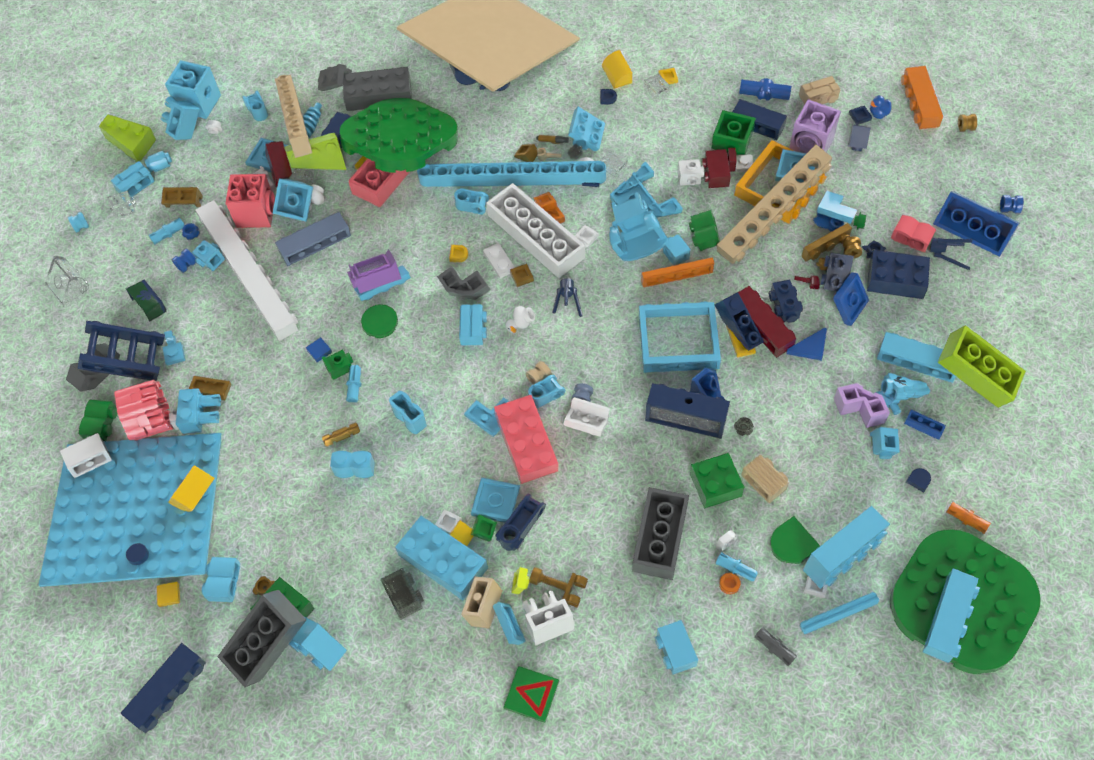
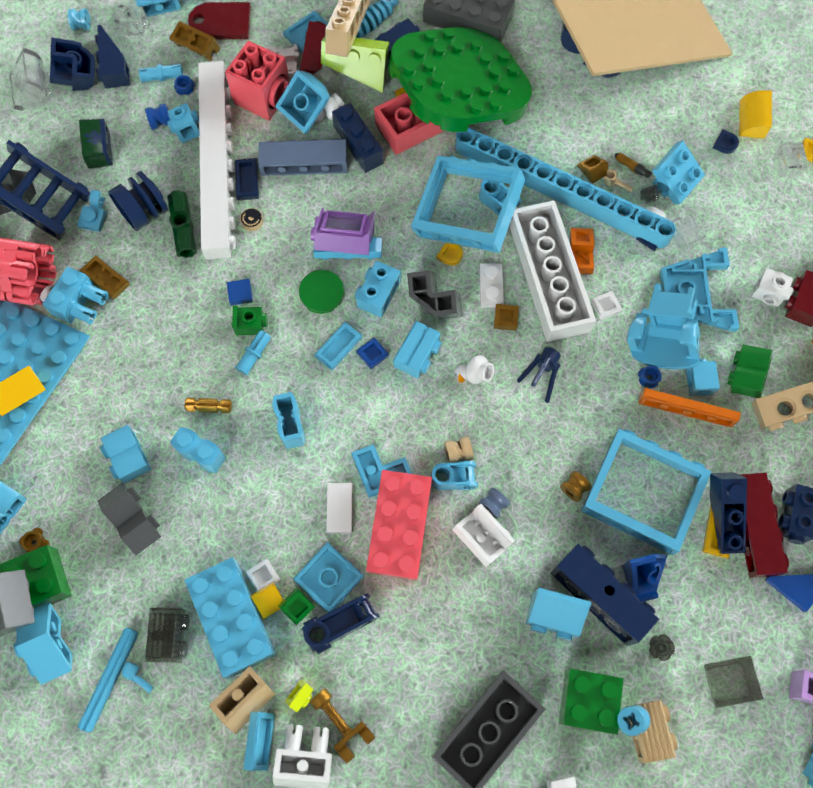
camera: 25 degrees right, 10 degrees up
(93, 255) = (71, 64): none -> dark blue brick
(124, 238) = (113, 67): none -> dark blue slope
(193, 173) = (222, 19): none -> dark red tile
(206, 322) = (138, 200): none -> dark blue wheel
(253, 329) = (184, 233): none -> dark green piece
(278, 273) = (246, 179): none -> dark blue tile
(298, 298) = (251, 220): none -> black tile
(299, 494) = (125, 454): none -> medium azure brick
(336, 535) = (129, 518): none -> dark grey brick
(350, 208) = (358, 137): none -> dark blue brick
(376, 648) = (107, 680): none -> medium azure axle
(389, 632) = (129, 672): none -> medium azure hand
(413, 350) = (338, 346): none -> medium azure tile
(420, 299) = (378, 288): none -> medium azure brick
(440, 343) = (372, 353): none -> blue tile
(461, 235) = (460, 236): none -> medium azure window
(476, 452) = (339, 508): none -> white tile
(631, 357) = (575, 486): none -> pearl gold wheel
(641, 262) = (651, 371): none -> blue plate
(663, 437) = (557, 613): none -> medium azure slope
(753, 473) = (639, 718): none -> medium azure wheel
(800, 423) = (733, 681): none -> clear smoke piece

